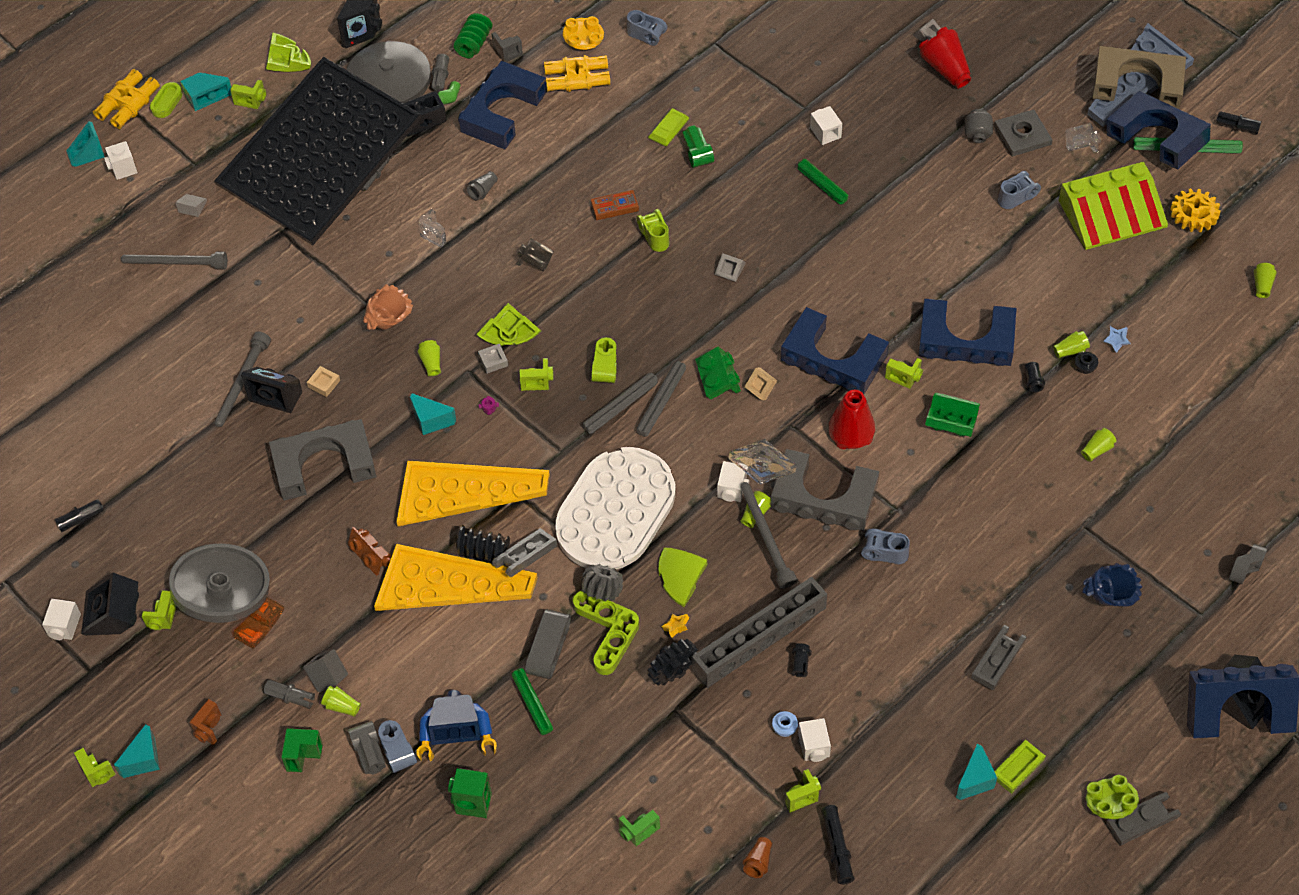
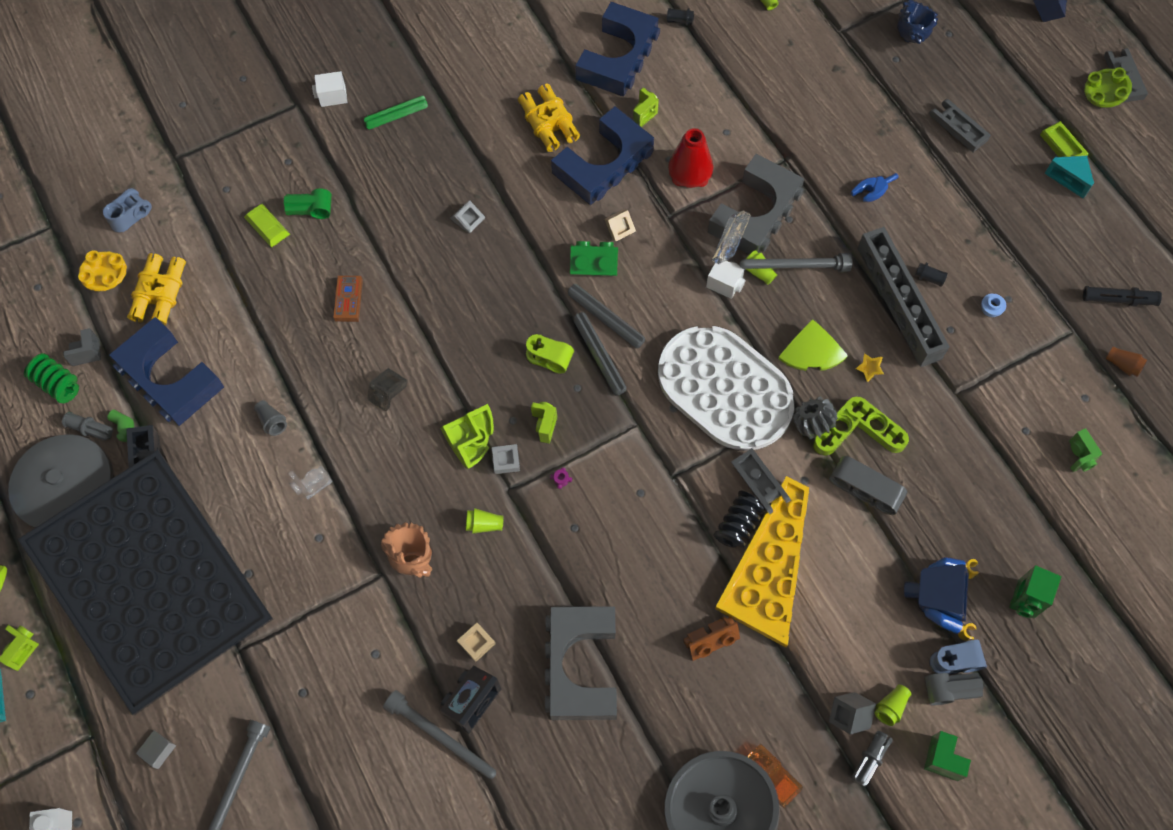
camera: 75 degrees left, 10 degrees up
(432, 414) = (558, 538): teal slope -> none
(452, 489) = (659, 536): yellow wing -> none
(532, 701) = (927, 516): green axle -> none
(654, 230) = (396, 268): lime piece -> none
(672, 662) = (923, 375): black gear -> none
(802, 796) = (1071, 306): lime bracket -> none
(814, 740) = (1018, 284): white brick -> none
(862, 298) = (548, 117): none -> yellow pin
(884, 546) = (827, 176): sand blue piece -> none
(891, 594) = (876, 186): none -> blue hand
(952, 414) = (705, 85): green bracket -> none

